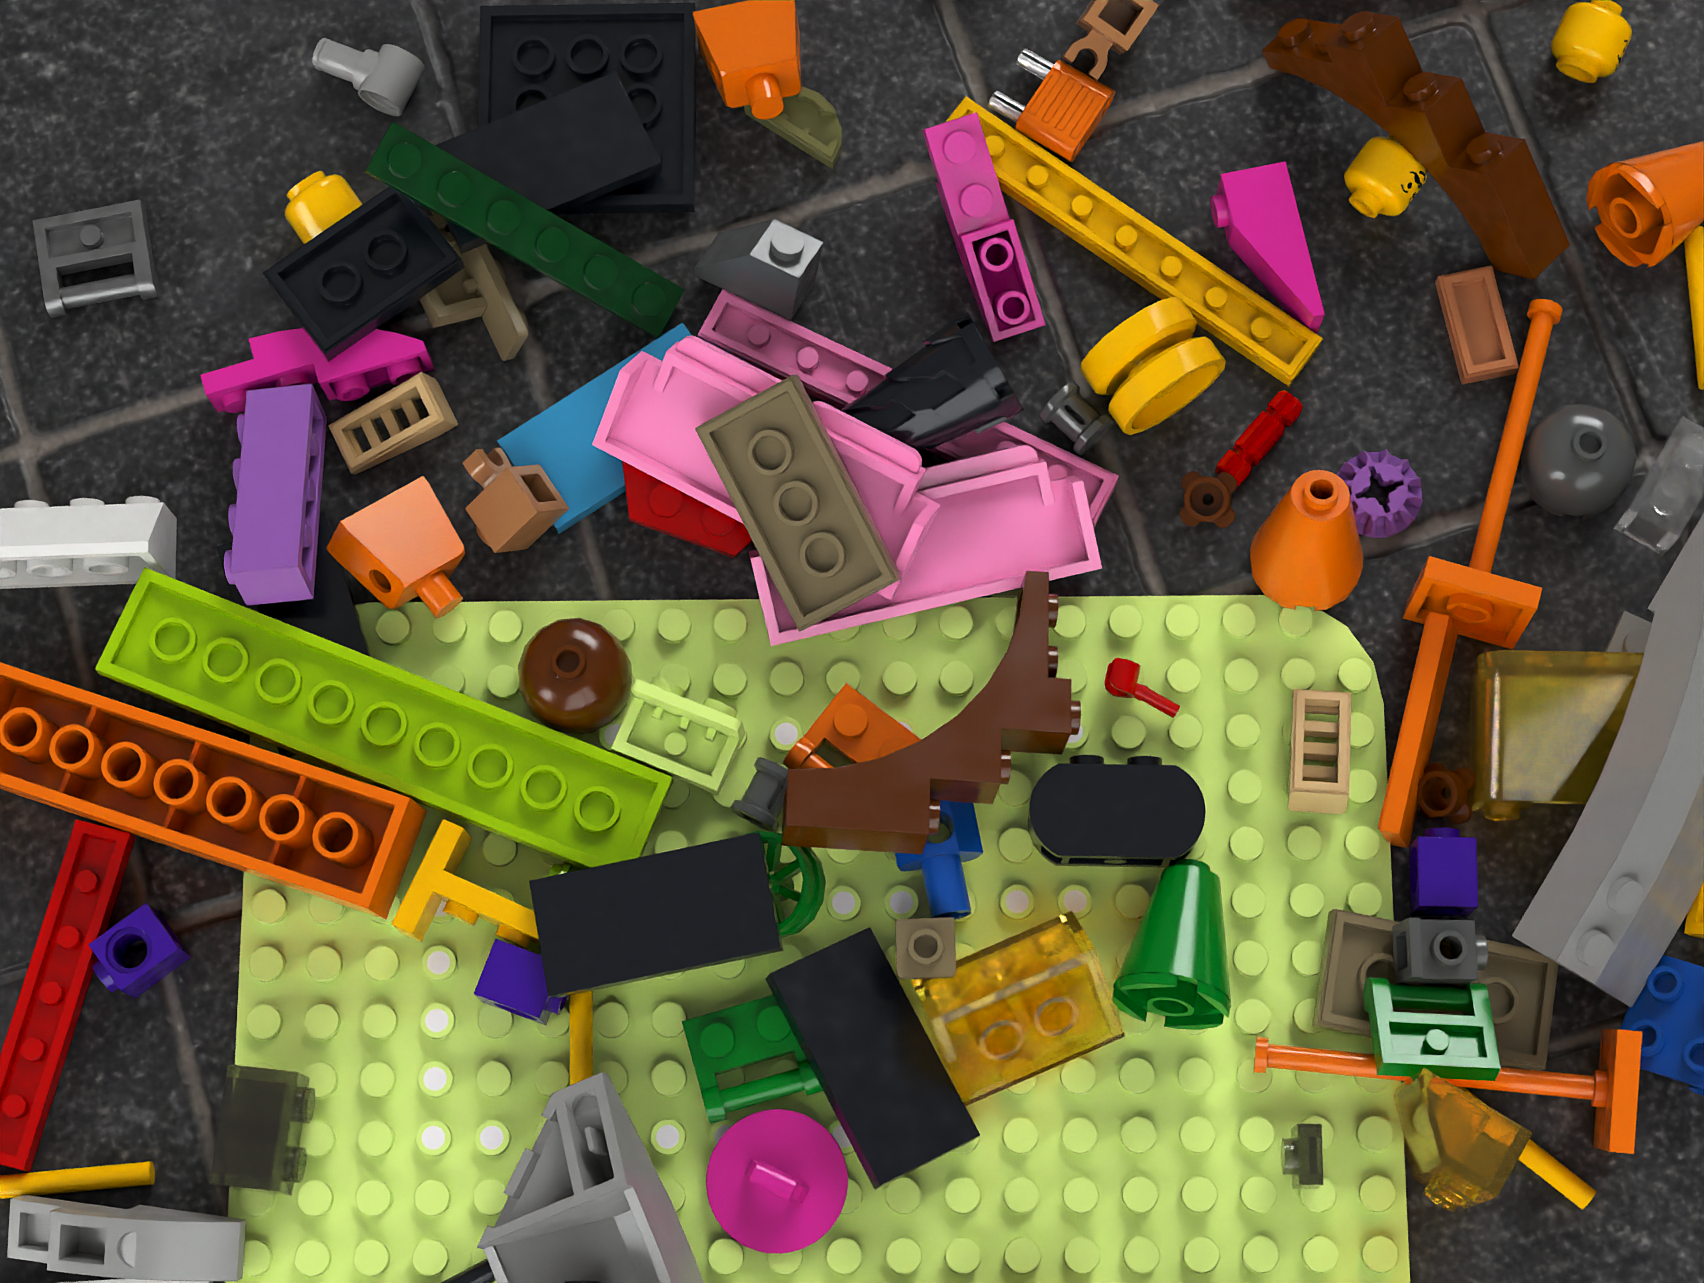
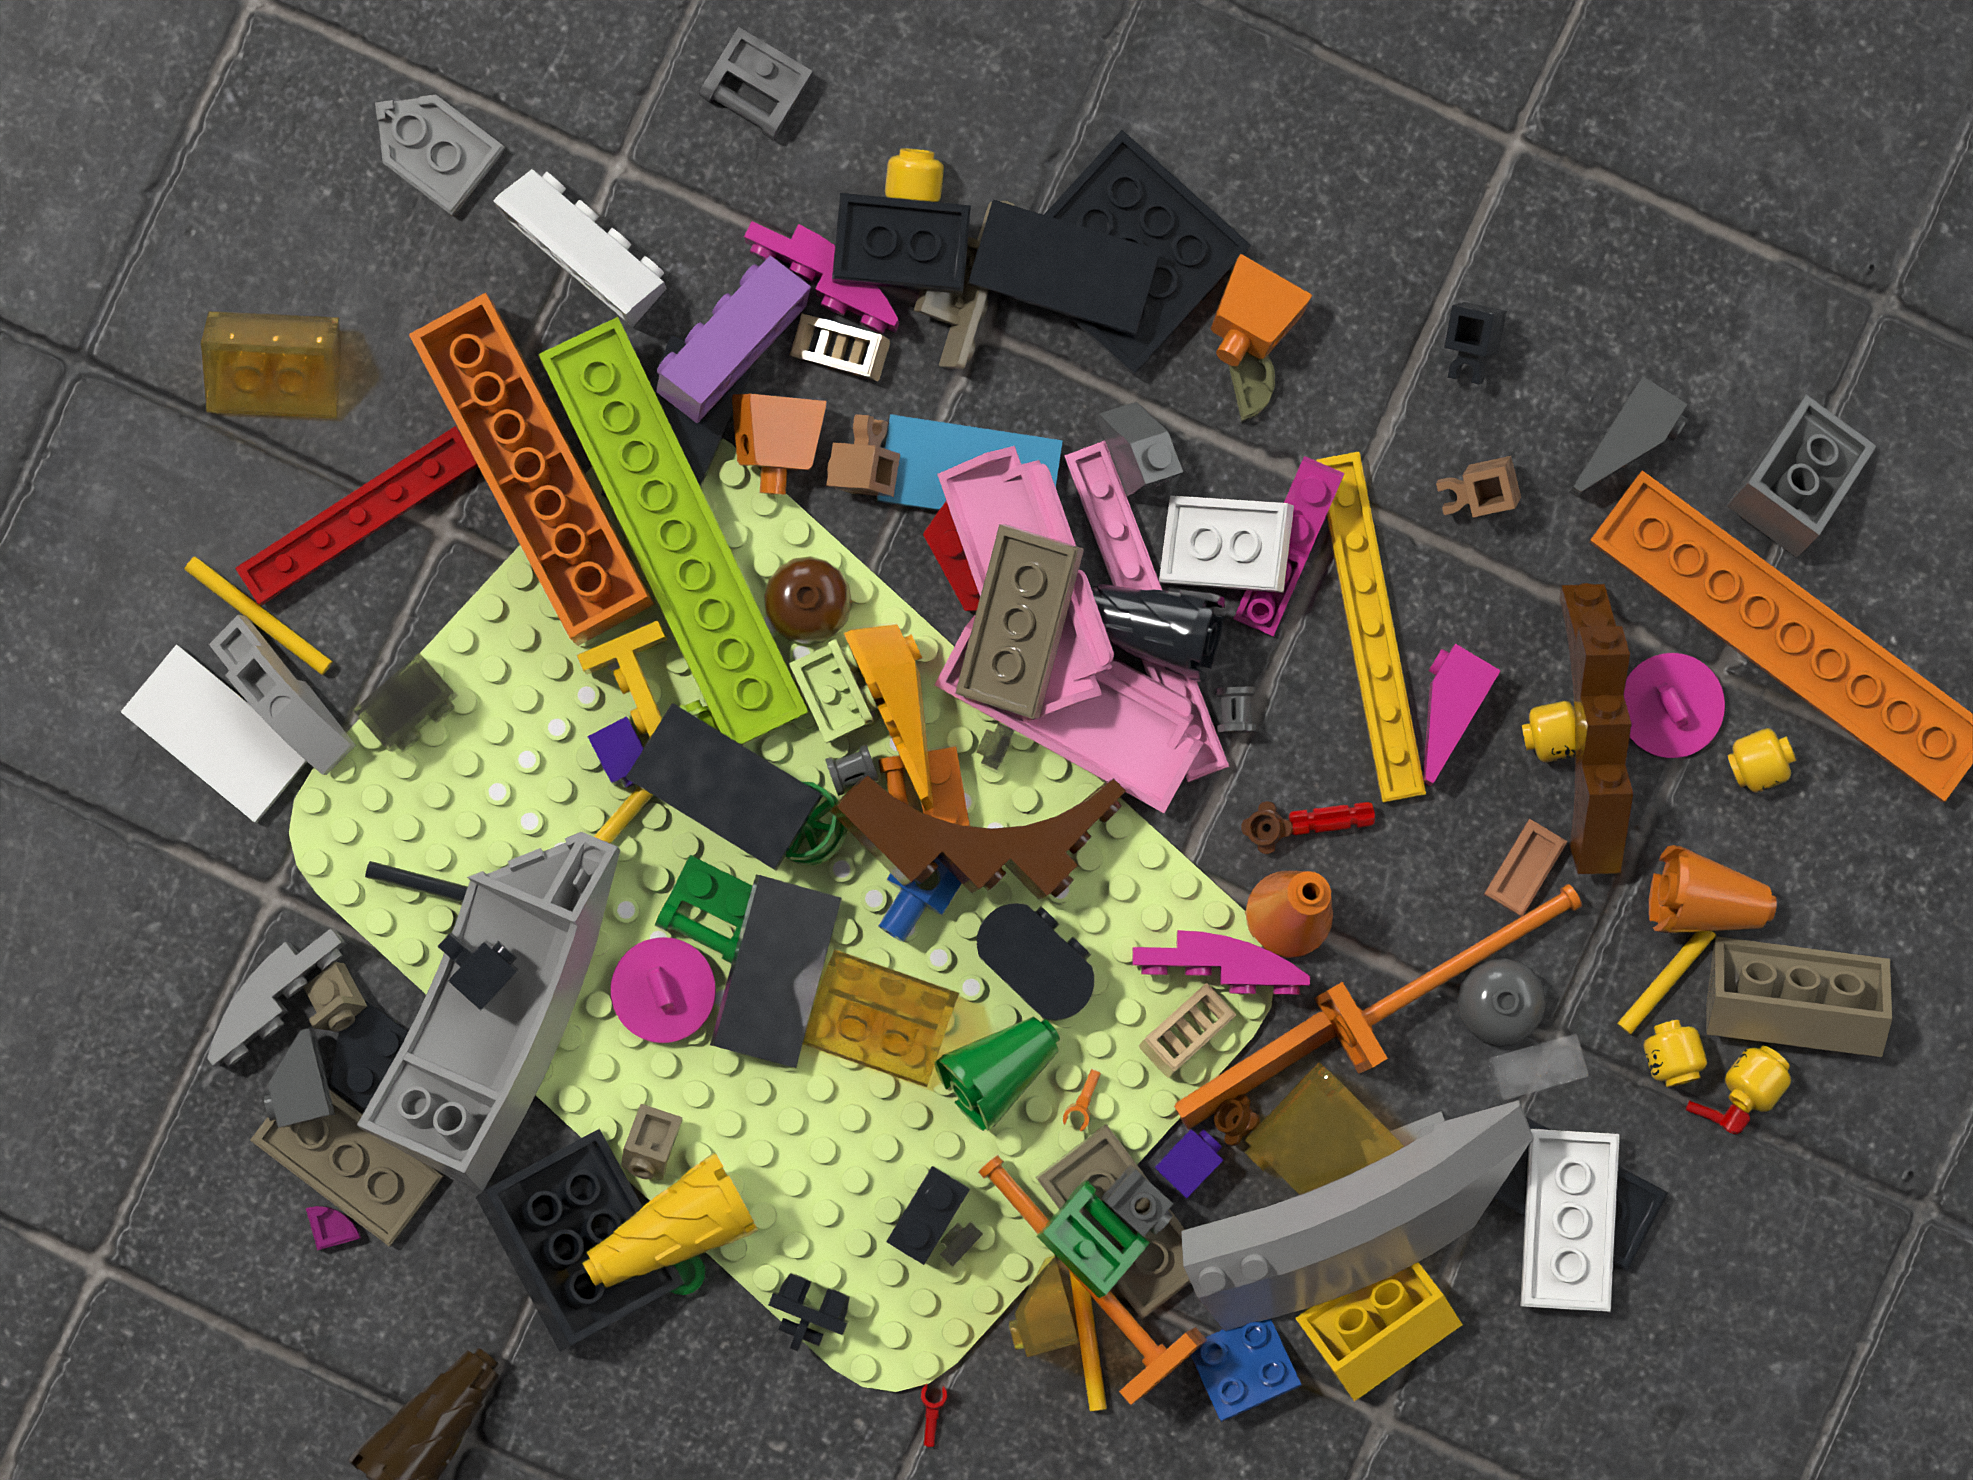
camera: 45 degrees right, 10 degrees up
(163, 956) = (443, 542): dark purple brick -> none
(382, 77) = (1024, 119): light grey pin -> none
(523, 230) = (1014, 307): dark green plate -> none
(720, 665) = (895, 685): none -> light orange wedge
(884, 648) = (994, 746): none -> clear smoke plate
(925, 272) = (1226, 543): none -> white tile
(925, 948) = (857, 940): dark tan bracket -> none
(1062, 108) = (1408, 512): orange piece -> none
(1122, 682) = (1115, 888): red hand -> none
(1152, 365) = (1304, 716): yellow wheel -> none
(1248, 1157) = (928, 1215): none -> black brick
(1287, 909) = (1084, 1099): none -> orange hand
(1305, 639) = (1240, 963): none -> dark pink slope
(1401, 503) = (1348, 920): medium lavender gear -> none
(1479, 51) = (1673, 705): none -> dark pink shield

